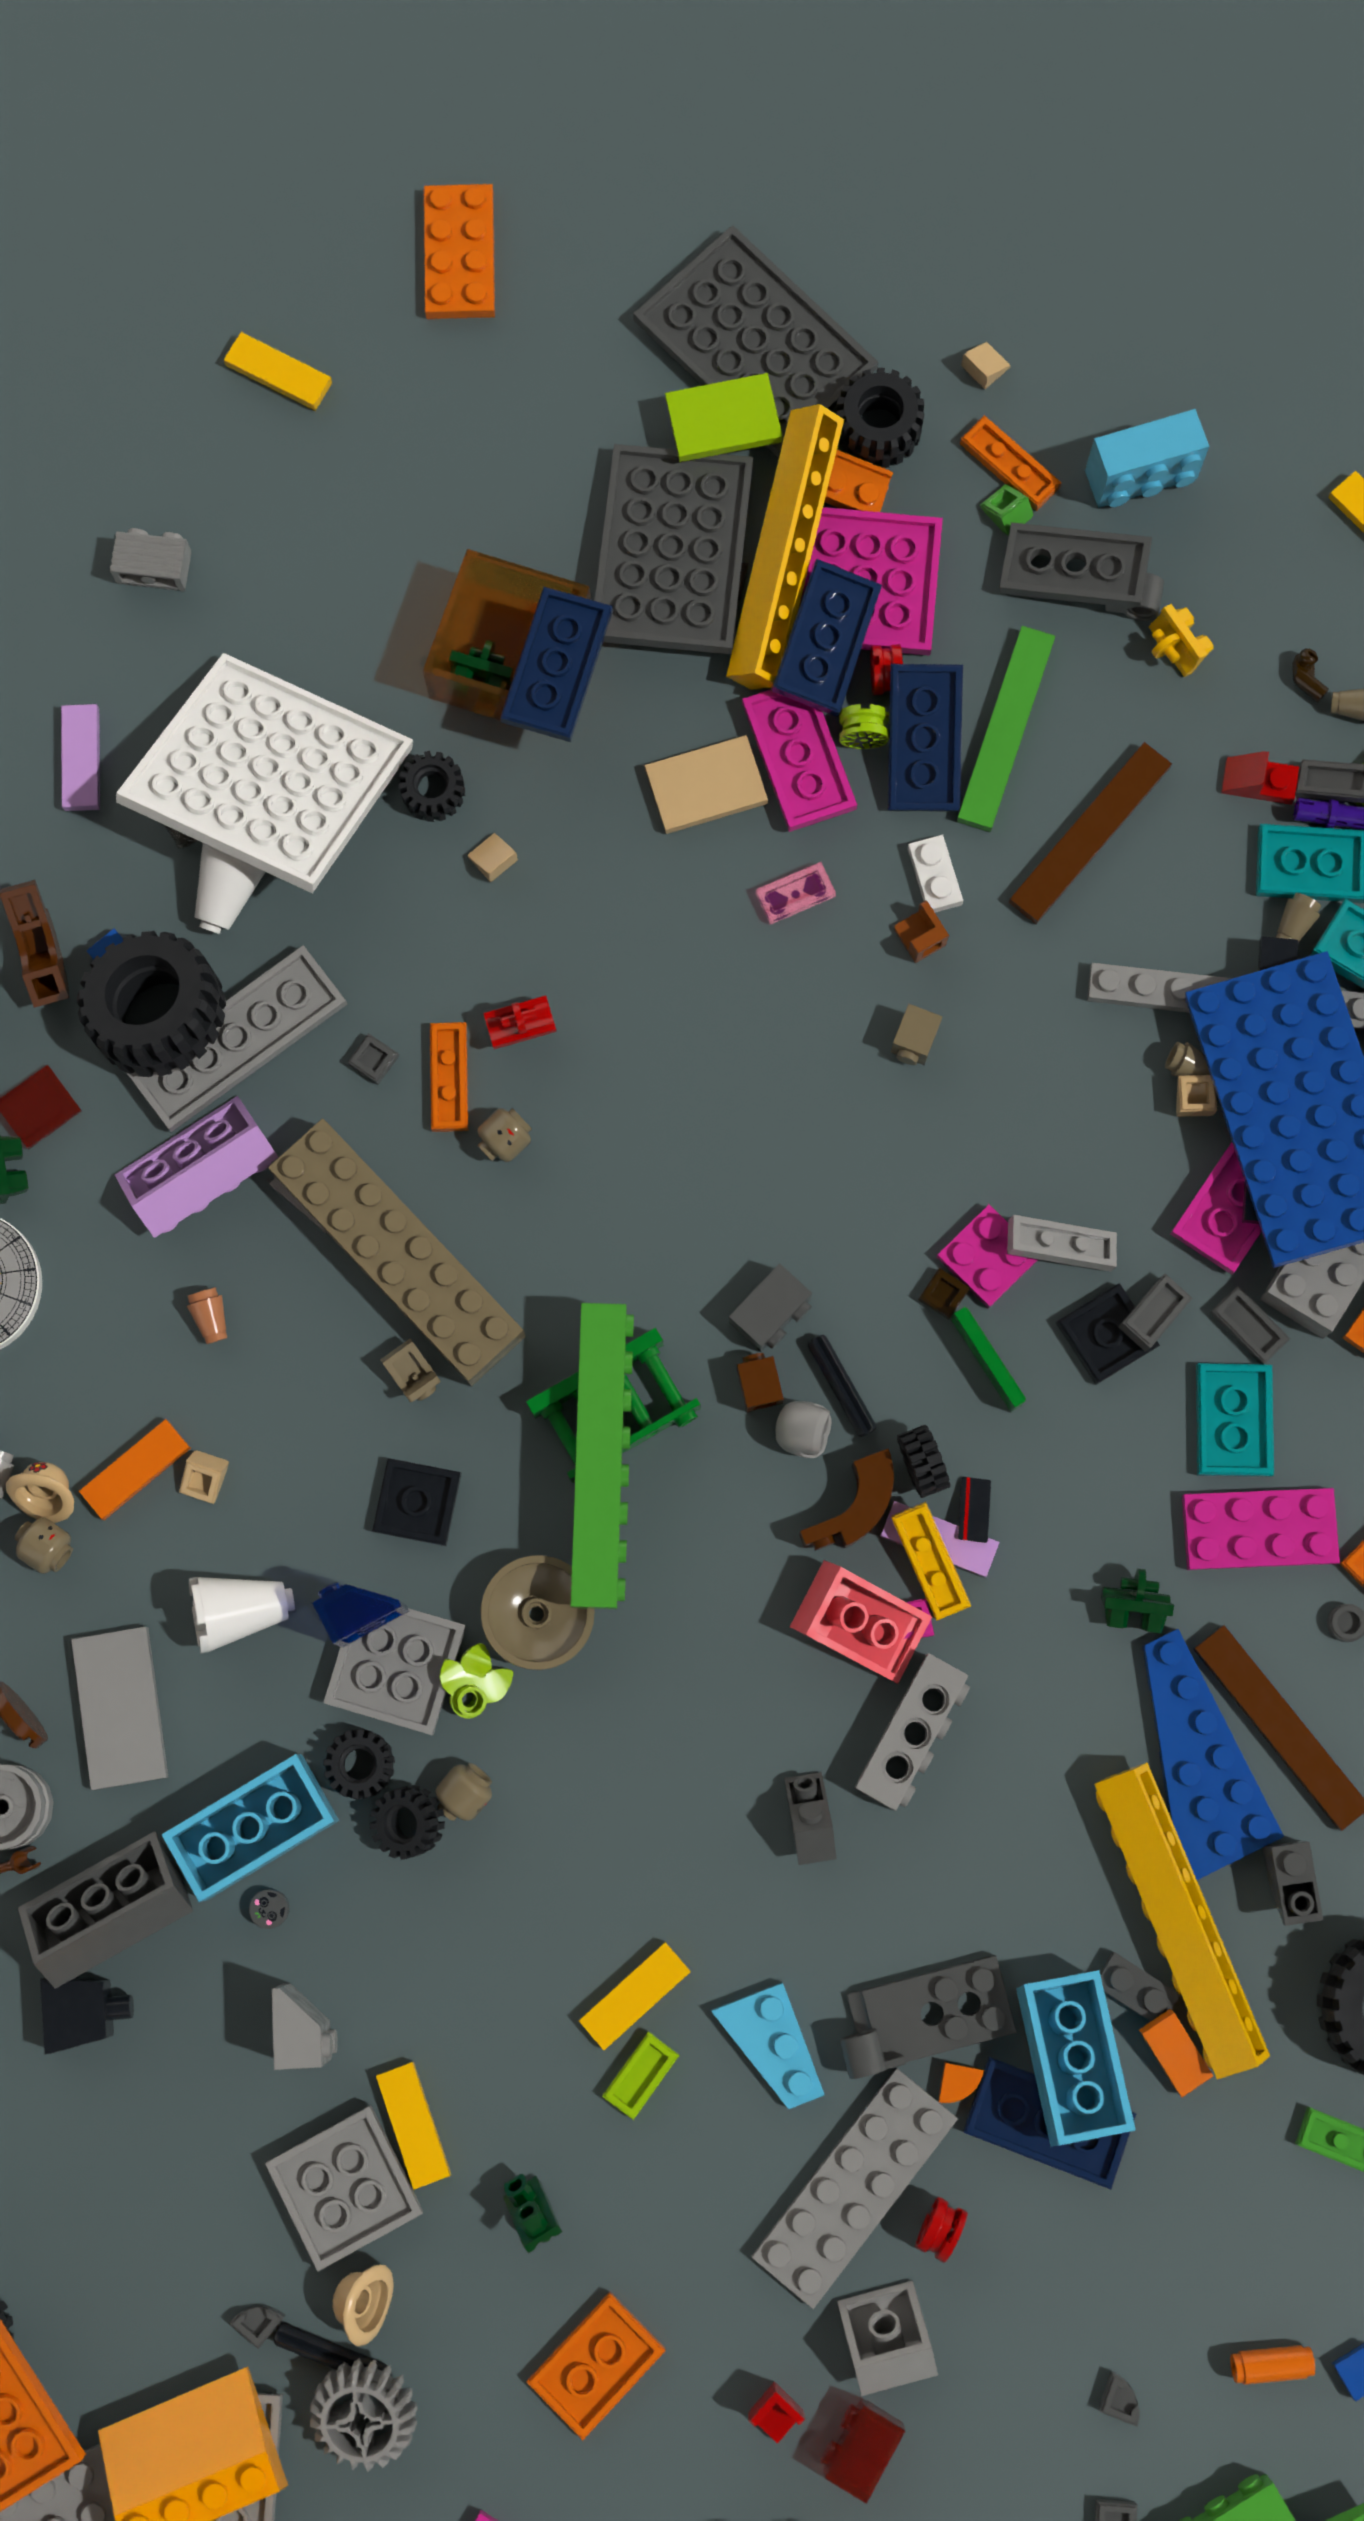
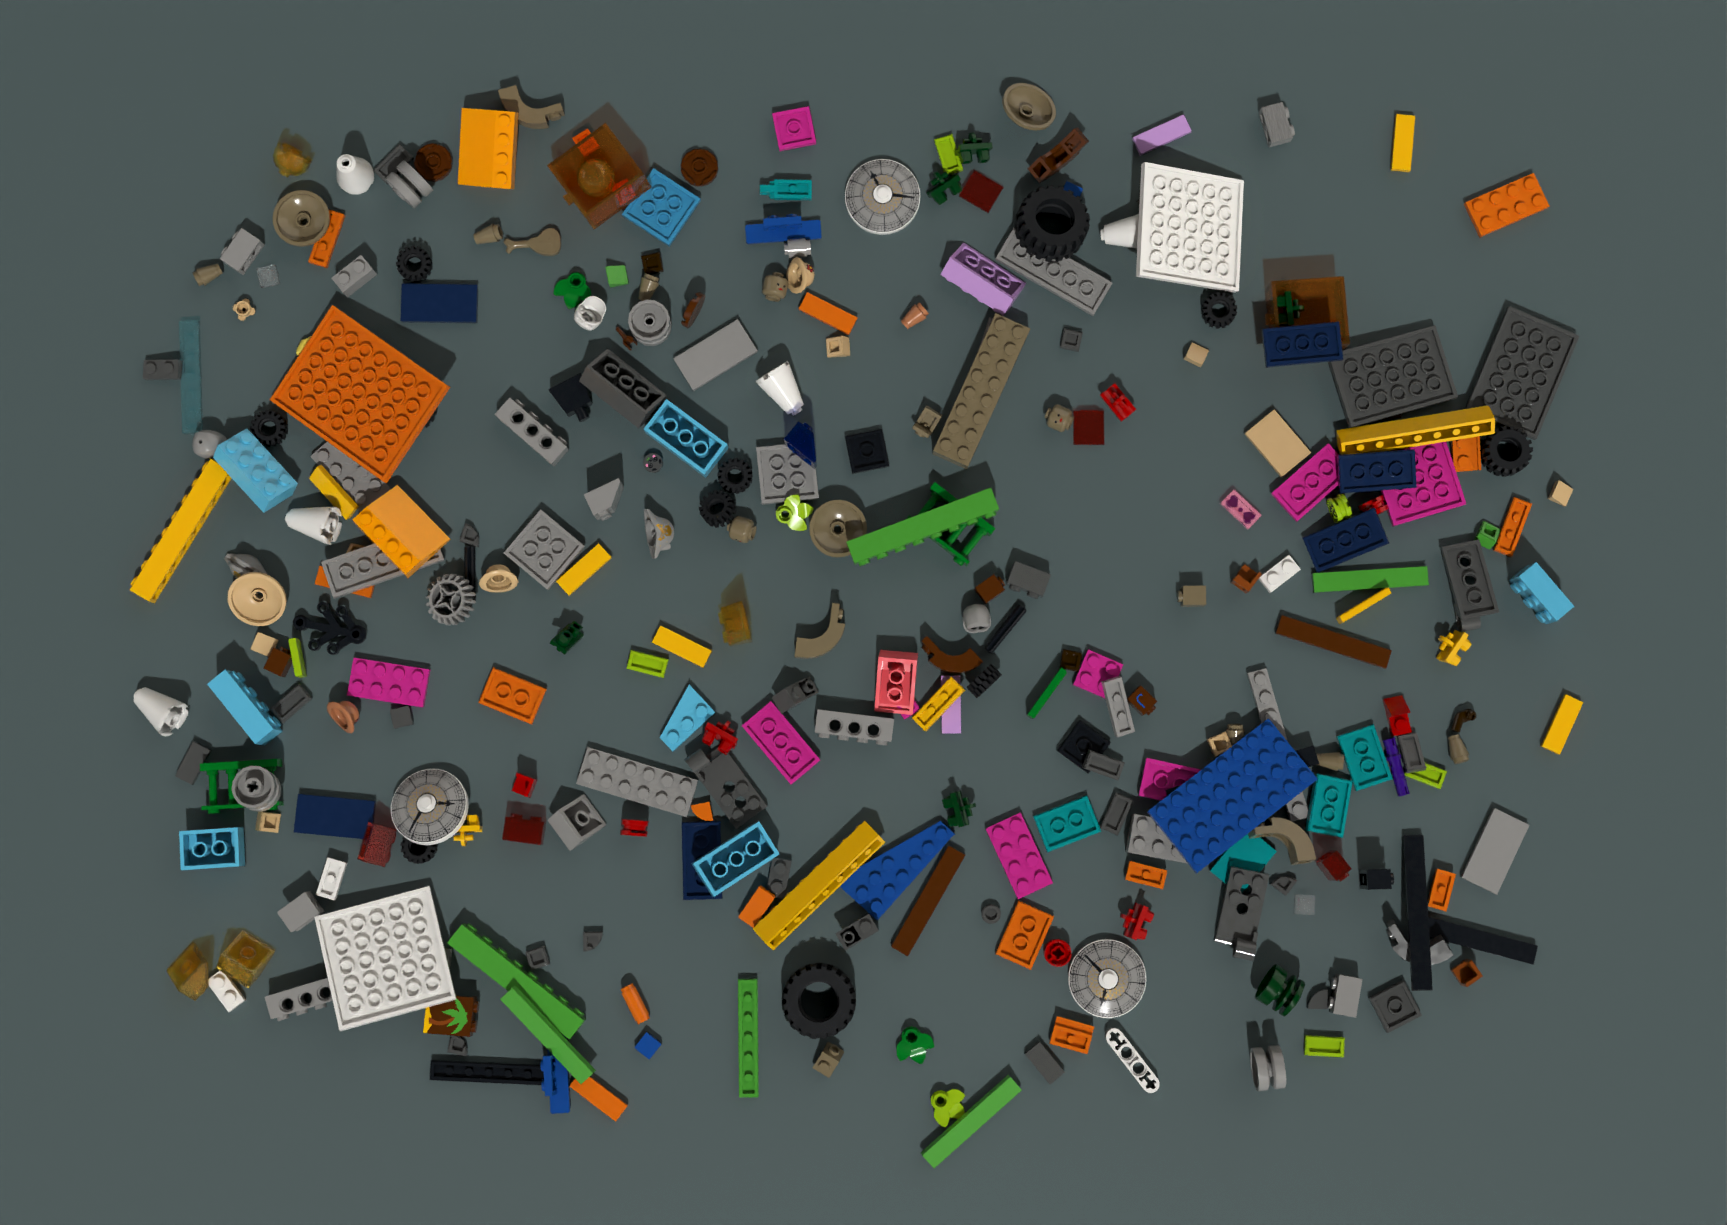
camera: 65 degrees right, 5 degrees up
(58, 2154) = (507, 415): none -> light grey brick
(406, 1953) = (658, 533): none -> light grey hat
(449, 1077) = (1077, 380): orange tile -> none
(541, 1093) = (1088, 427): none -> clear red piece
(635, 1877) = (735, 623): none -> clear yellow slope
(723, 417) = (1472, 373): lime tile -> none
(738, 1723) = (825, 643): none -> dark tan arch
(846, 1981) = (721, 733): none -> red hips
(889, 1881) = (781, 742): none -> dark pink plate
(974, 1509) = (971, 715): black sticker -> none
(1048, 756) = (1363, 605): none -> yellow tile
(1068, 1198) = (1142, 701): none -> reddish brown brick

